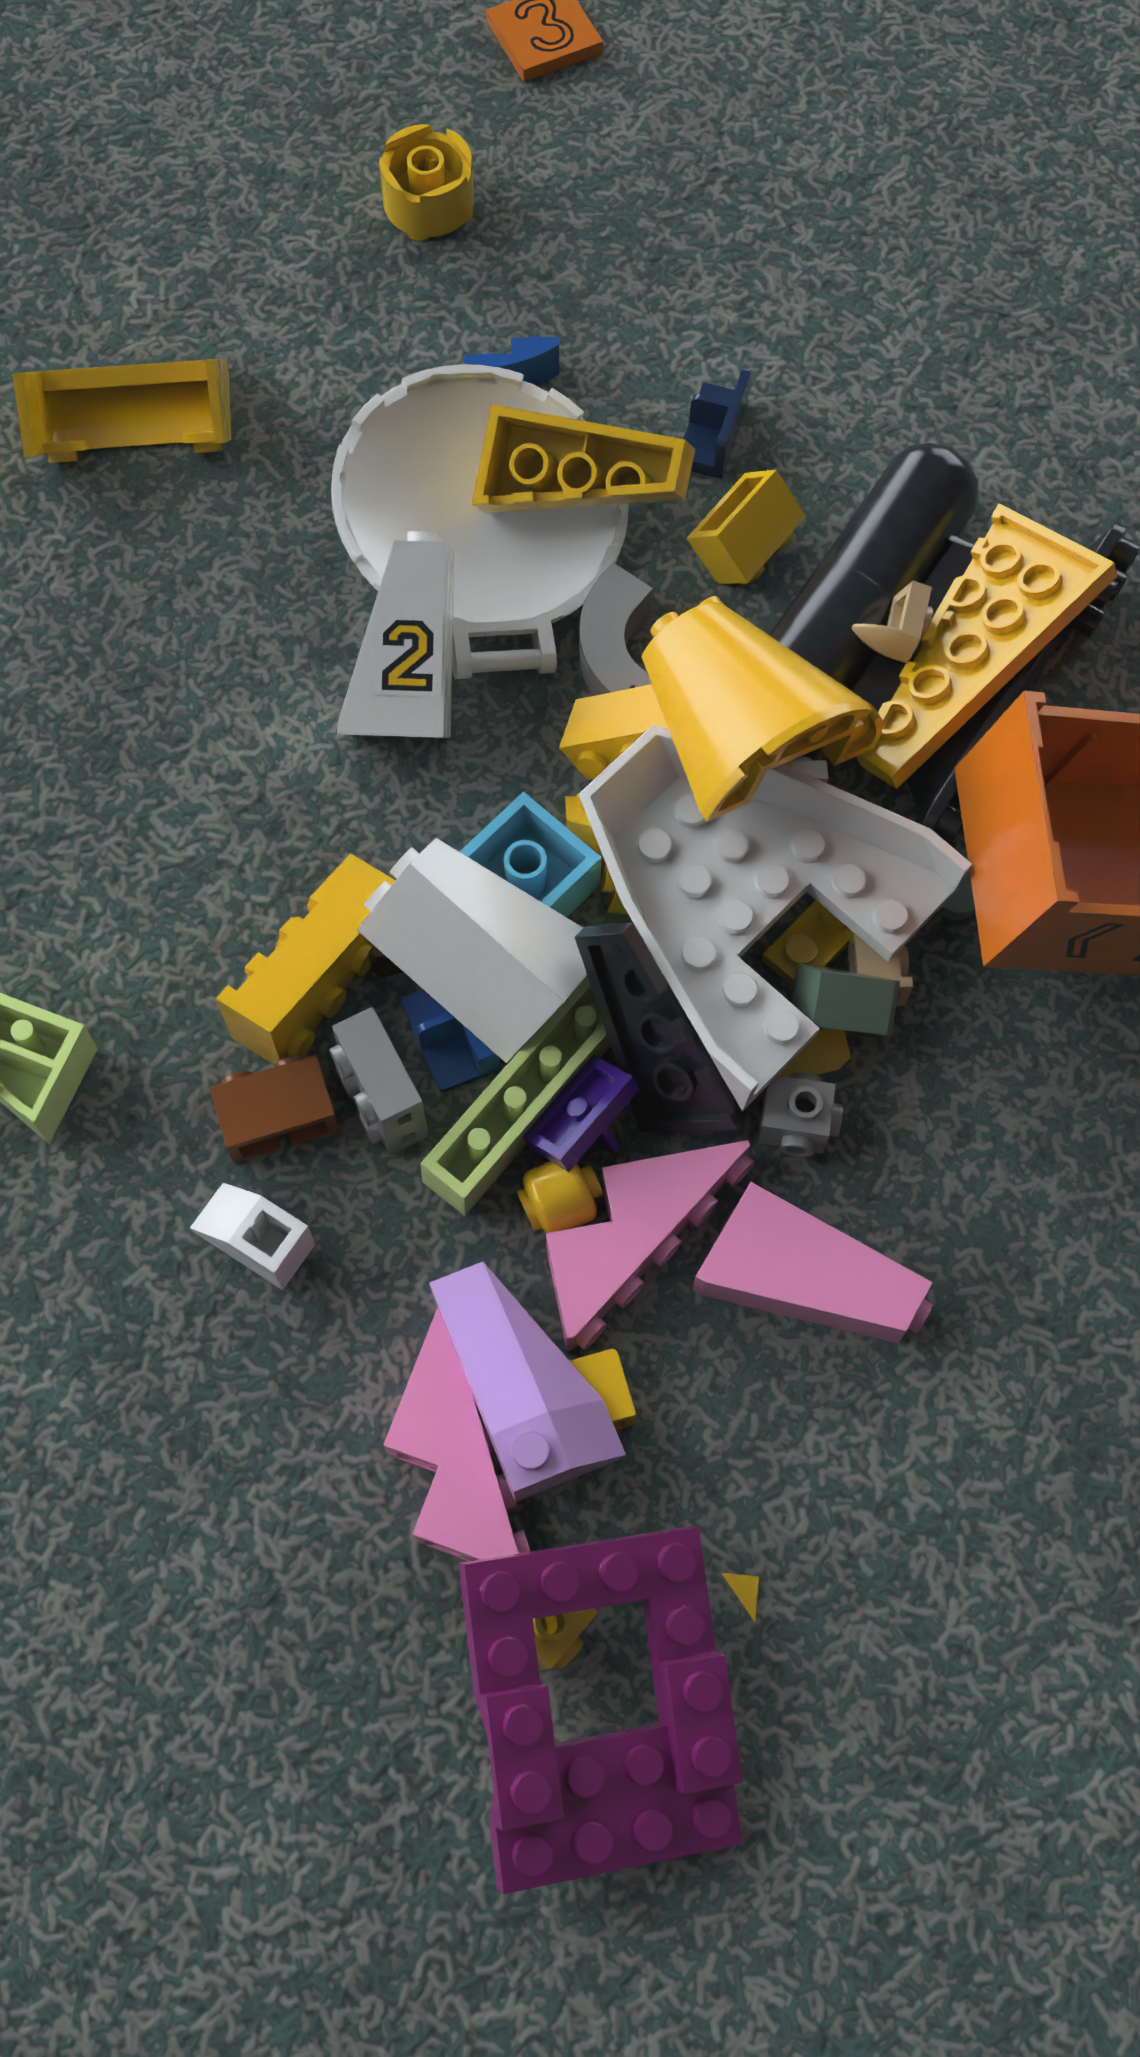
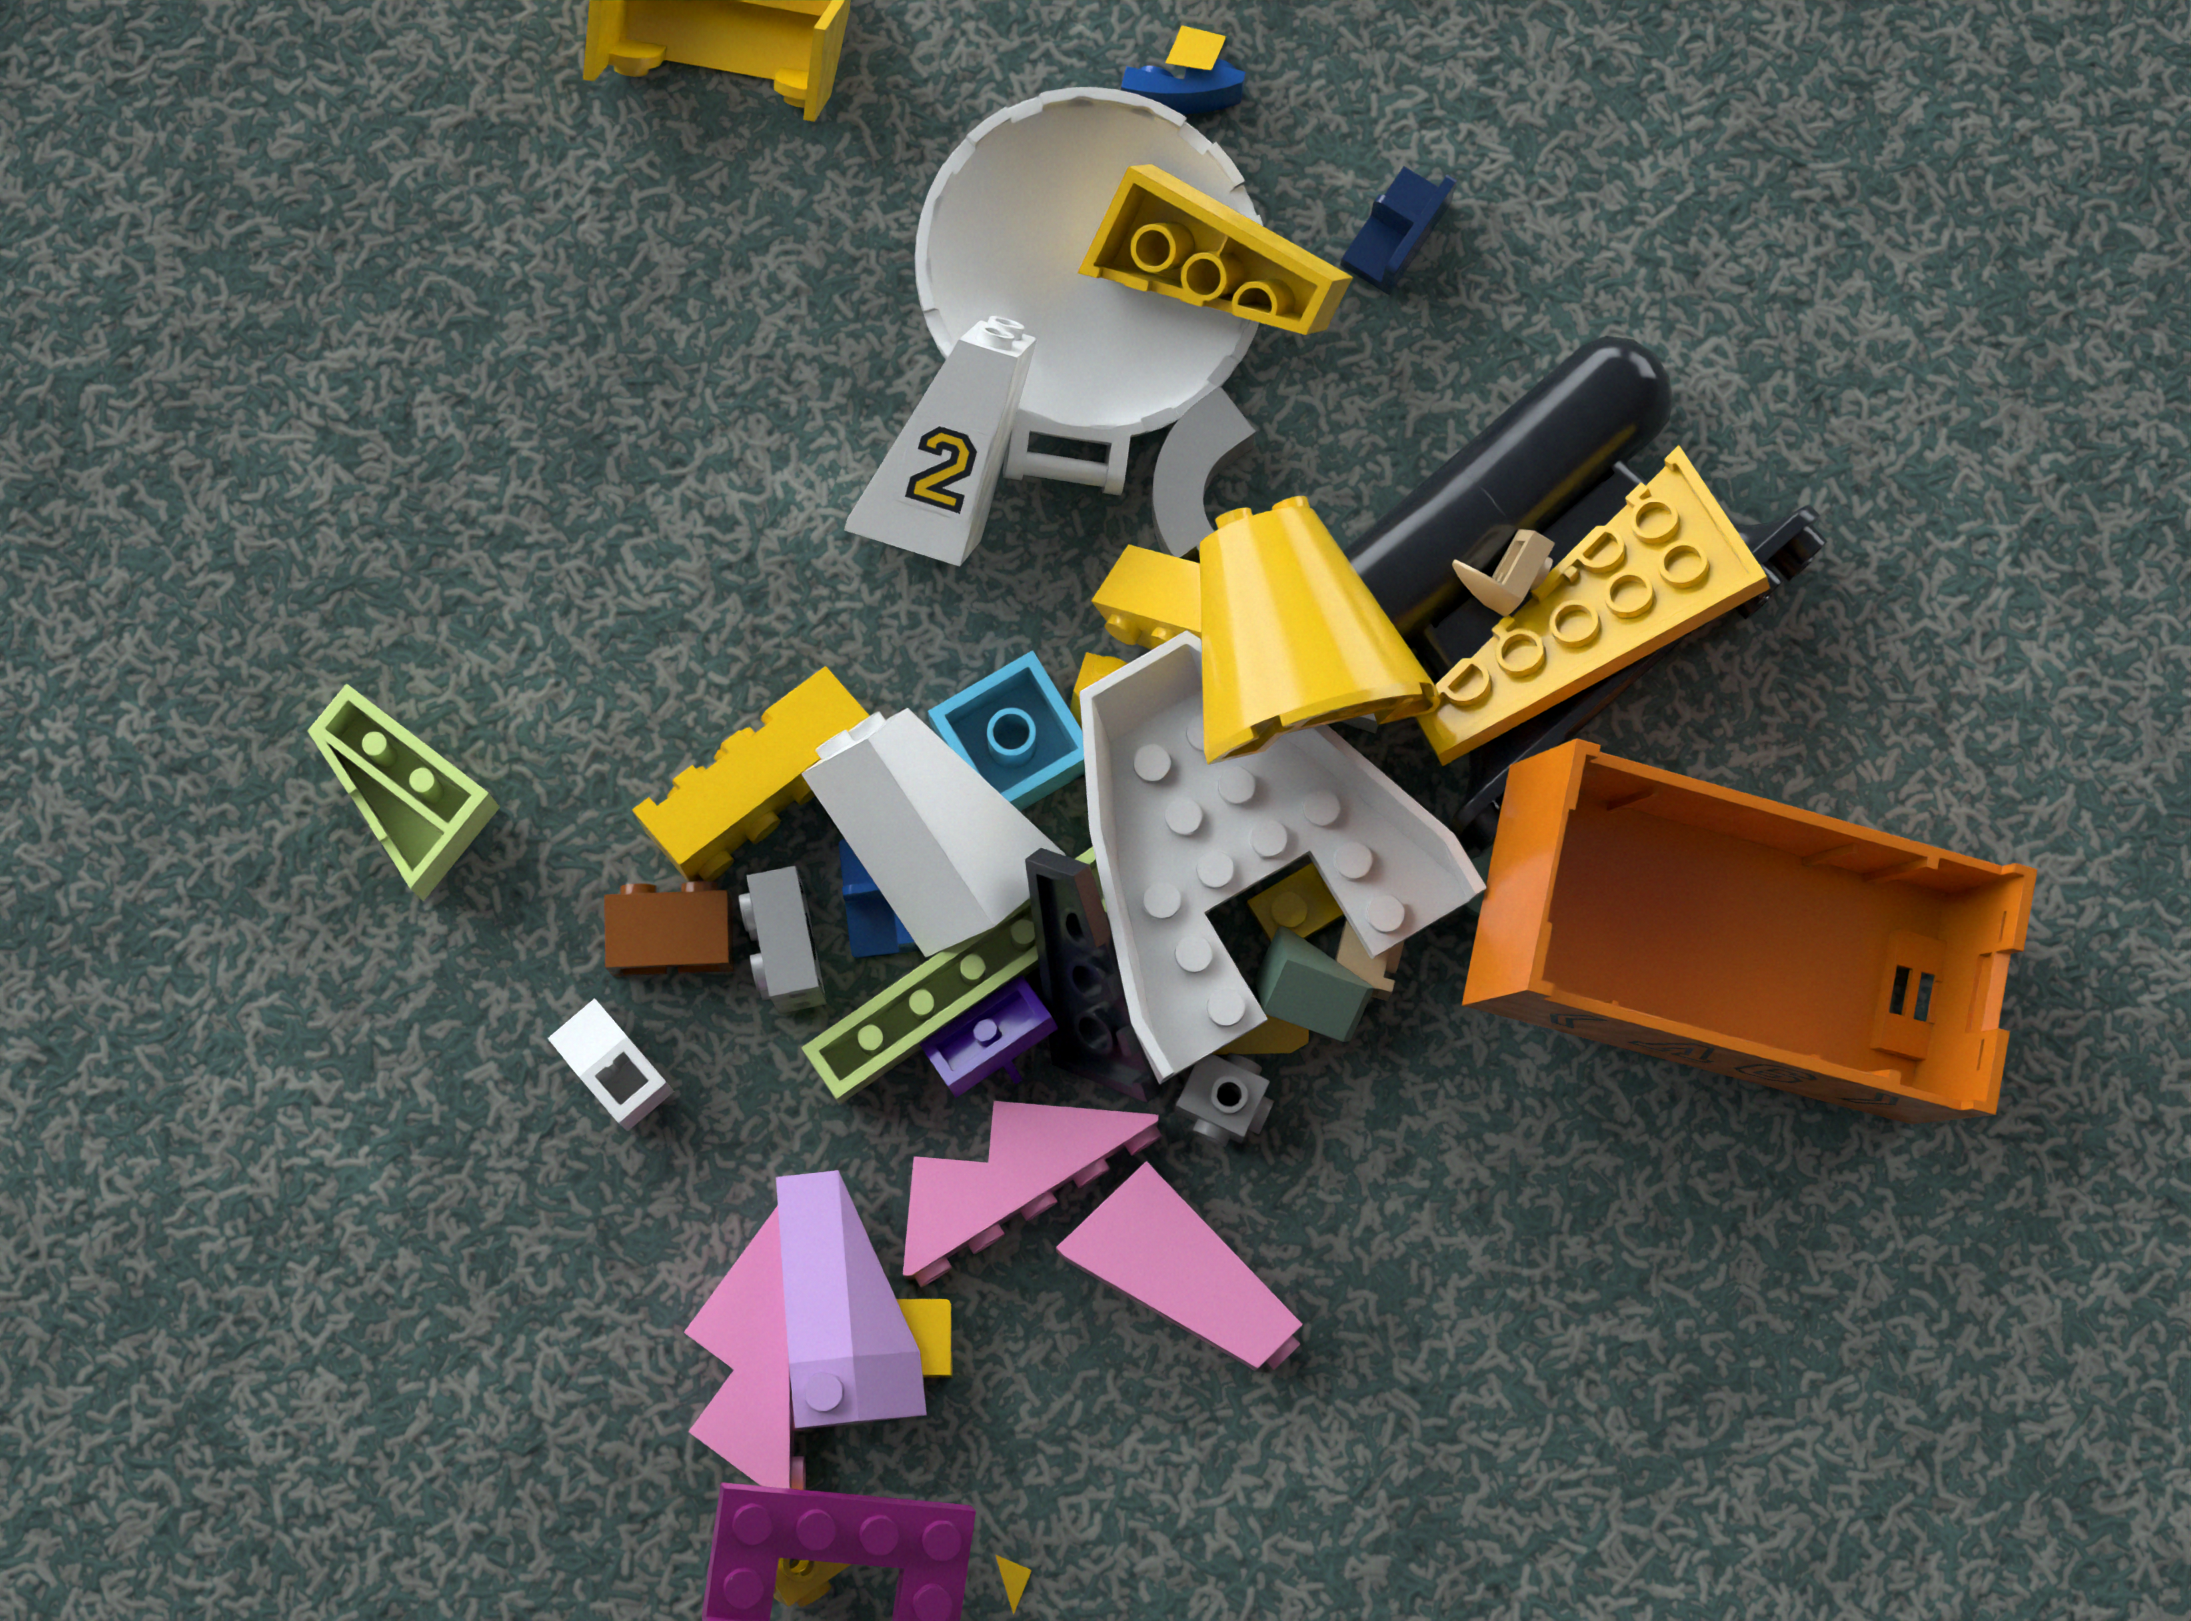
camera: 15 degrees right, 10 degrees up
(512, 334) = (1195, 48): none -> yellow sticker
(559, 1198) = (940, 1121): yellow head -> none
(747, 527) = (1390, 378): yellow brick -> none

